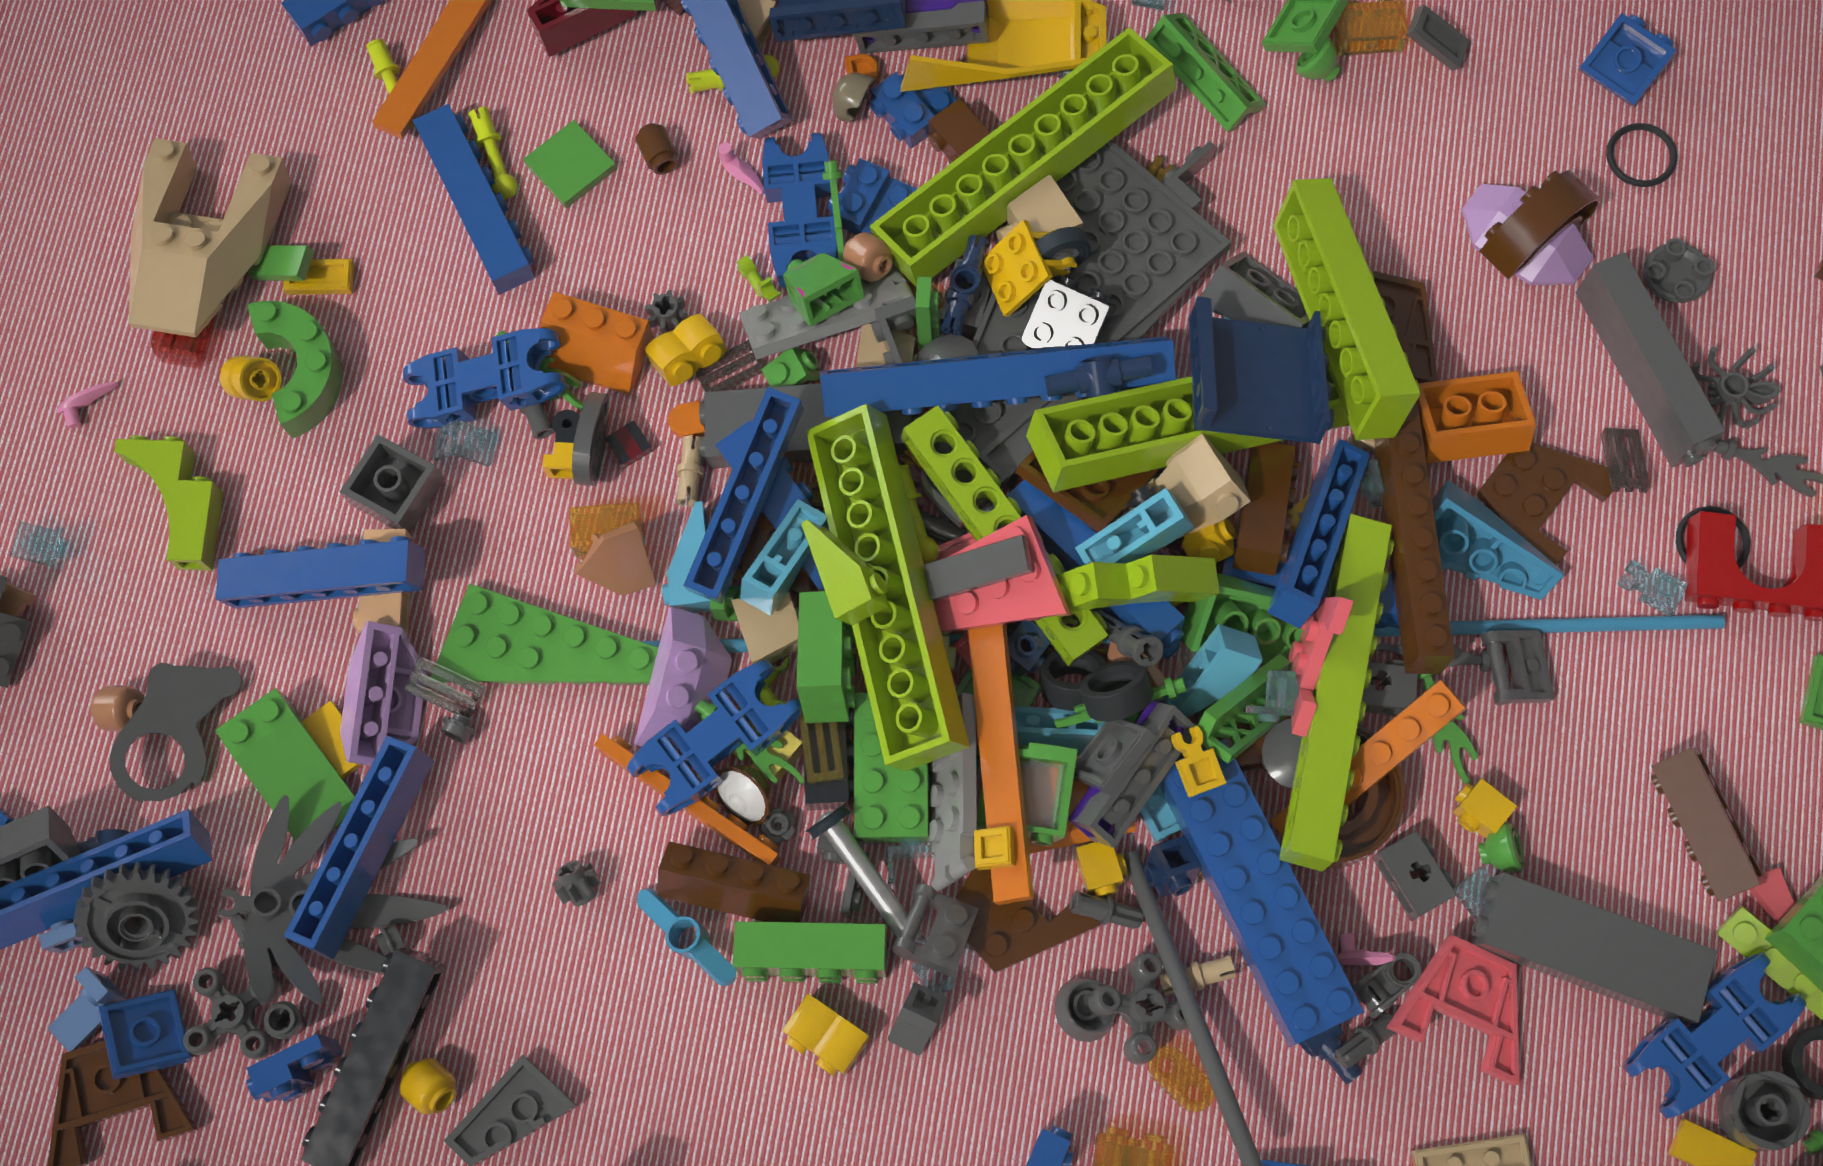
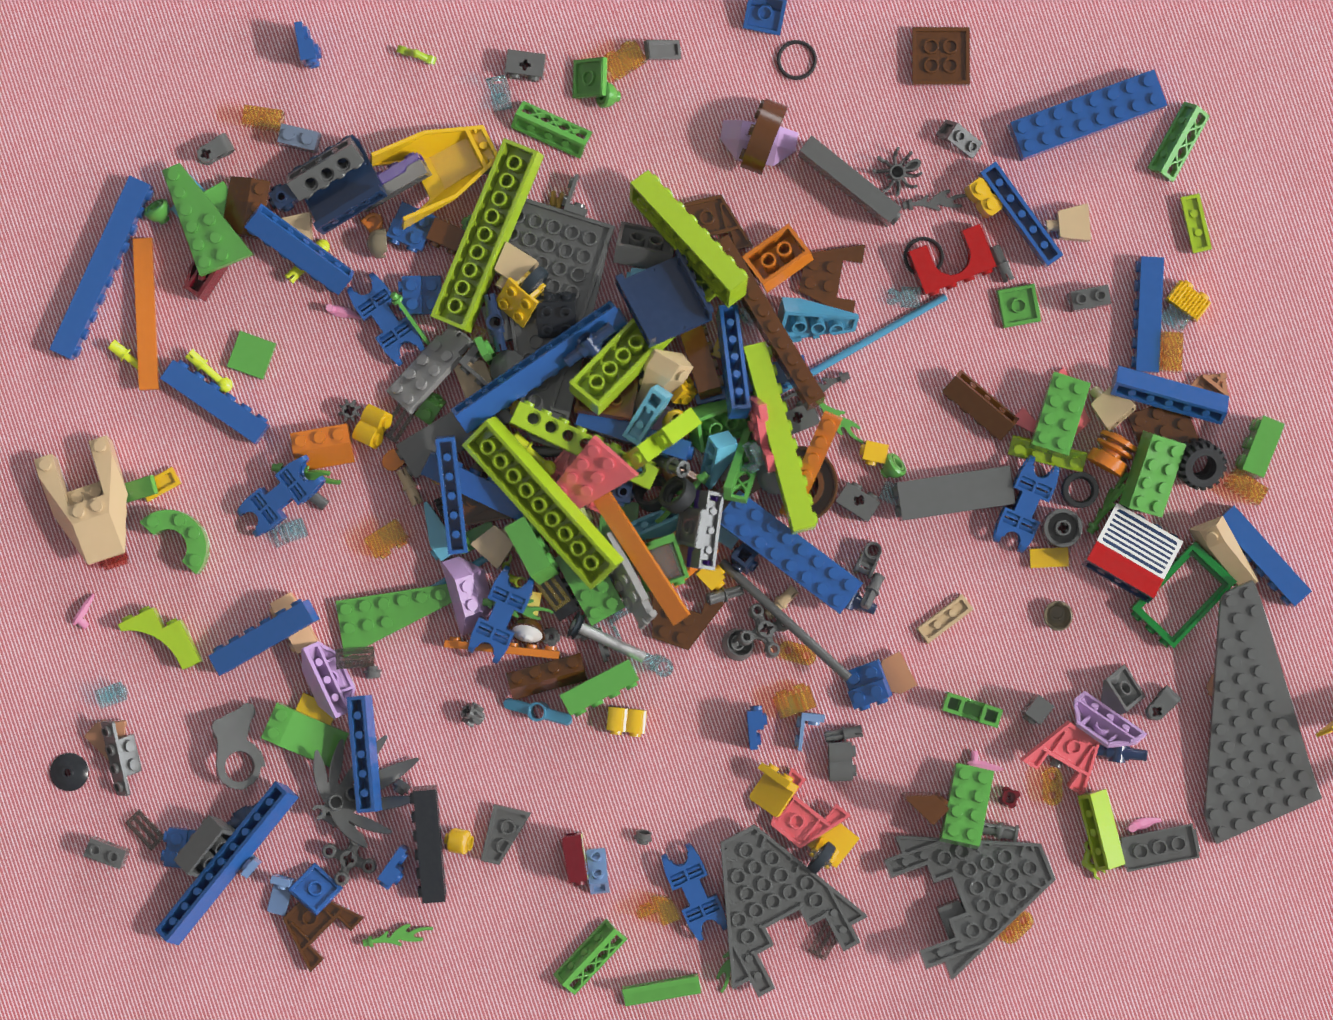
camera: 30 degrees left, 15 degrees up
(108, 924) = (280, 841): dark grey gear -> none
(115, 706) = (203, 751): nougat head -> none
(250, 378) = (164, 558): yellow wheel -> none
(277, 1020) = (373, 852): dark grey cone -> none
(392, 484) = (269, 573): dark grey brick -> none
(560, 462) = (342, 506): leg -> none
(590, 439) = (352, 498): dark grey piece -> none
(618, 561) = (402, 553): nougat slope -> none
(628, 444) = (370, 488): tile -> none
(657, 148) = (293, 324): reddish brown brick -> none
(763, 287) = (386, 369): lime arm -> none
(780, 560) = (485, 512): medium azure slope -> none
(822, 287) = (423, 361): bright green torso -> none
(849, 582) = (526, 512): lime slope -> none
(869, 256) = (437, 331): nougat head -> none
(917, 1018) = (665, 691): dark grey bracket -> none
(947, 934) = (658, 647): flat silver plate -> none
(978, 568) = (583, 473): dark grey tile -> none
(994, 848) = (660, 600): yellow tile -> none
(1142, 494) = (641, 392): black plate -> none
(1199, 768) = (734, 513): yellow plate -> none
(1362, 957) = (849, 554): bright pink bar -> none
(1473, 990) = (909, 541): coral wing -> none
(1526, 664) = (862, 370): flat silver plate -> none
(1612, 461) = (870, 251): clear smoke tile -> none
(1678, 272) = (843, 119): dark grey dish -> none

